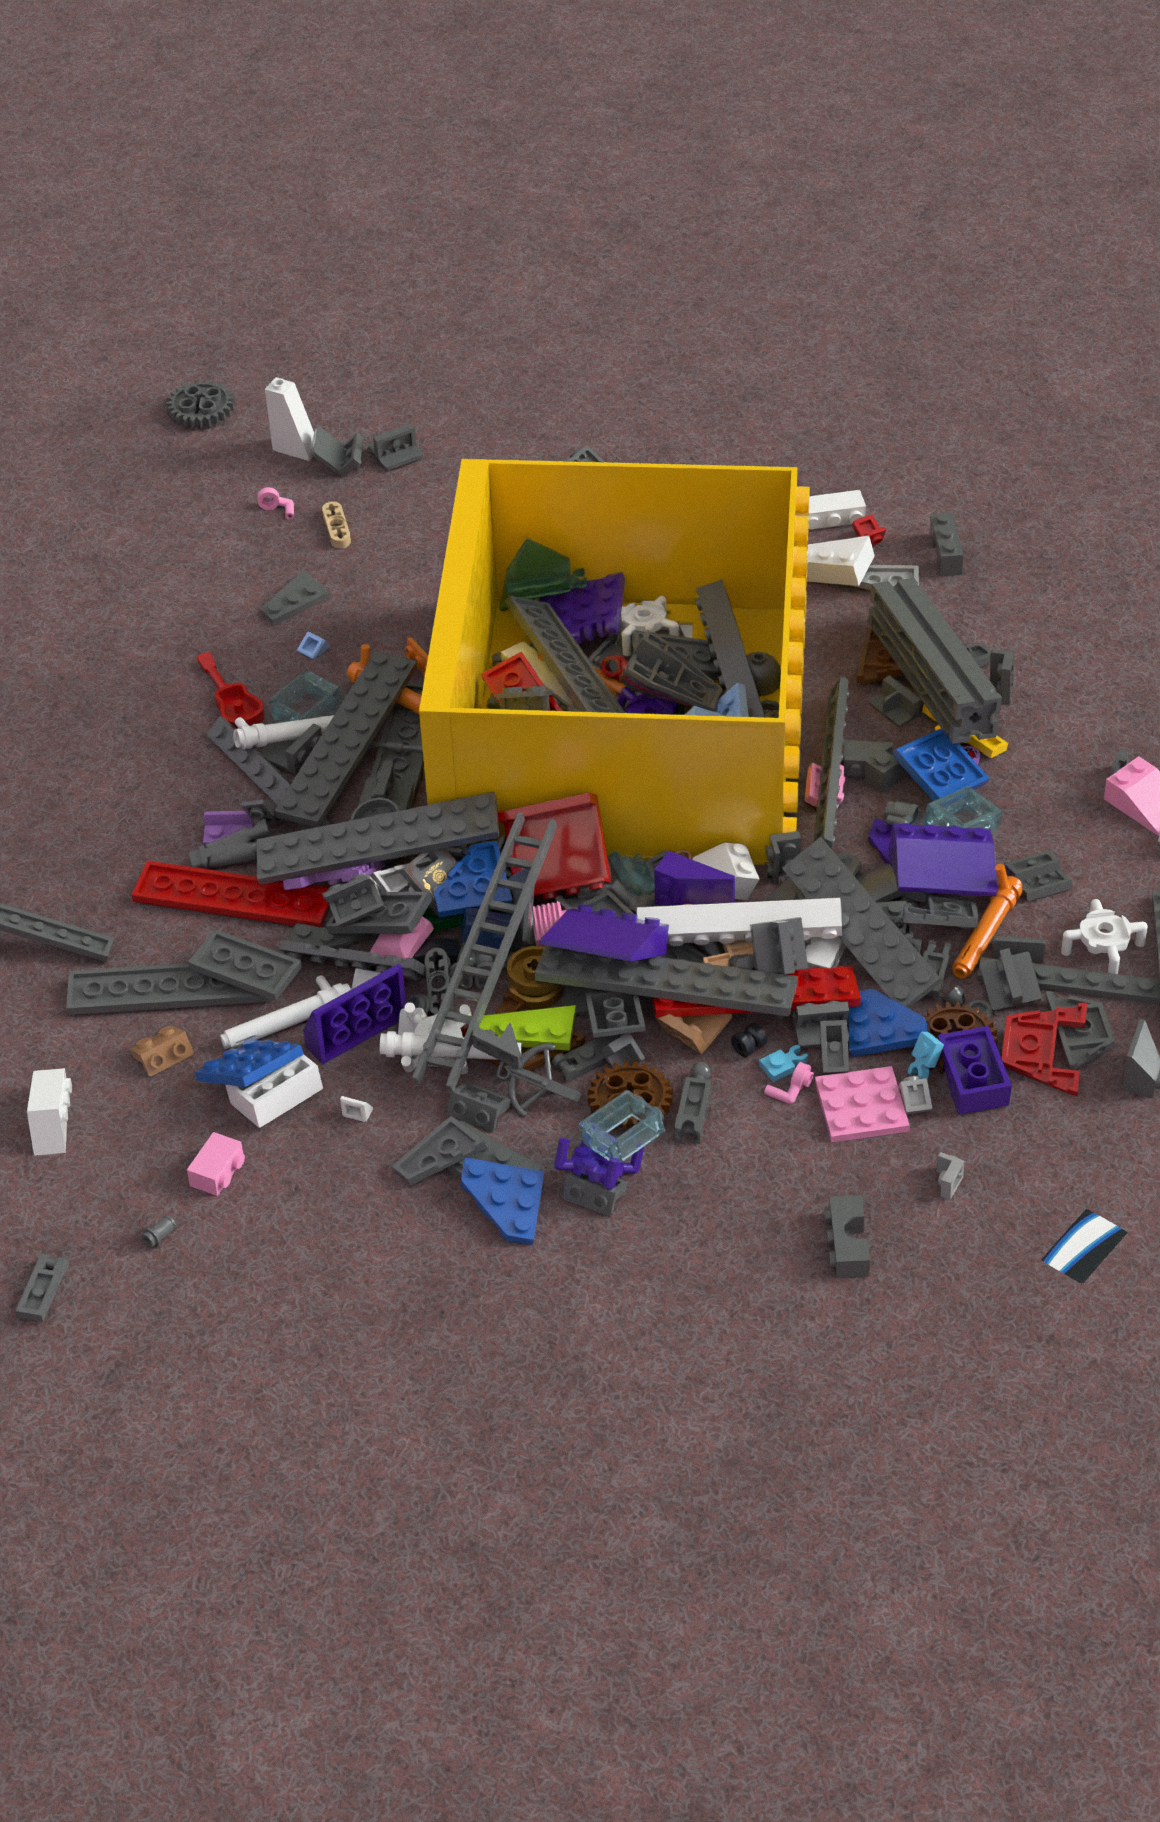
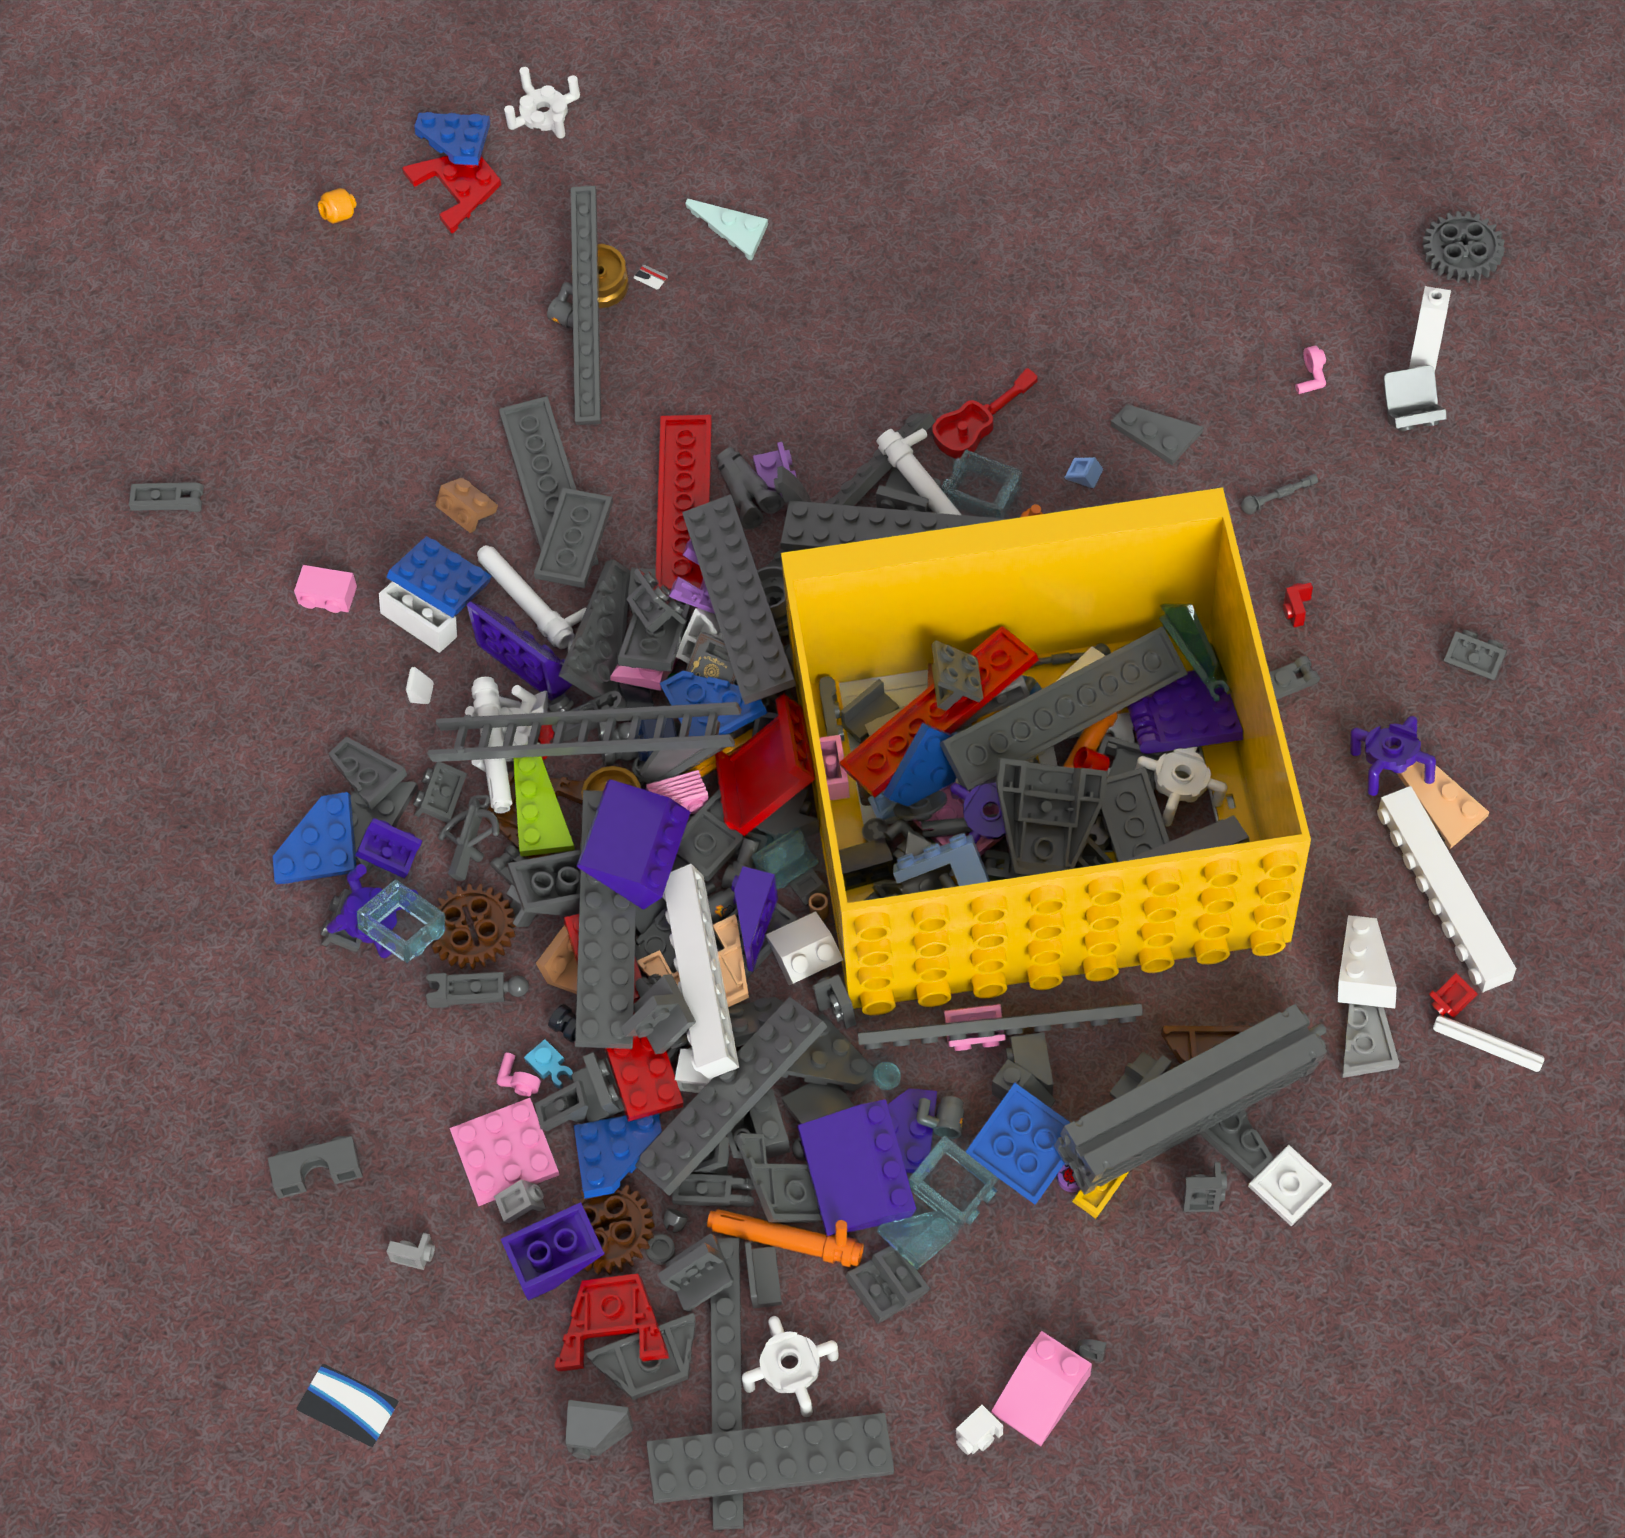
camera: 80 degrees right, 15 degrees up
(49, 1111) = (367, 433): white wedge -> none
(154, 1235) = (236, 565): dark grey pin -> none
(338, 518) = (1300, 428): tan beam -> none
(389, 555) = (1253, 503): none -> dark grey piece
(396, 447) = (1445, 458): dark grey bracket -> none
(501, 1048) = (482, 787): dark grey slope -> none
(528, 1142) = (388, 847): none -> dark purple bracket
(853, 845) = (886, 1075): none -> clear light blue plate
(909, 524) = (1488, 1043): none -> white axle
(926, 1053) = (564, 1197): medium azure plate -> none
(947, 542) = (1468, 1082): dark grey arch -> none
(1004, 636) = (1290, 1185): none -> white plate
(1008, 846) = (919, 1236): none -> clear light blue wing

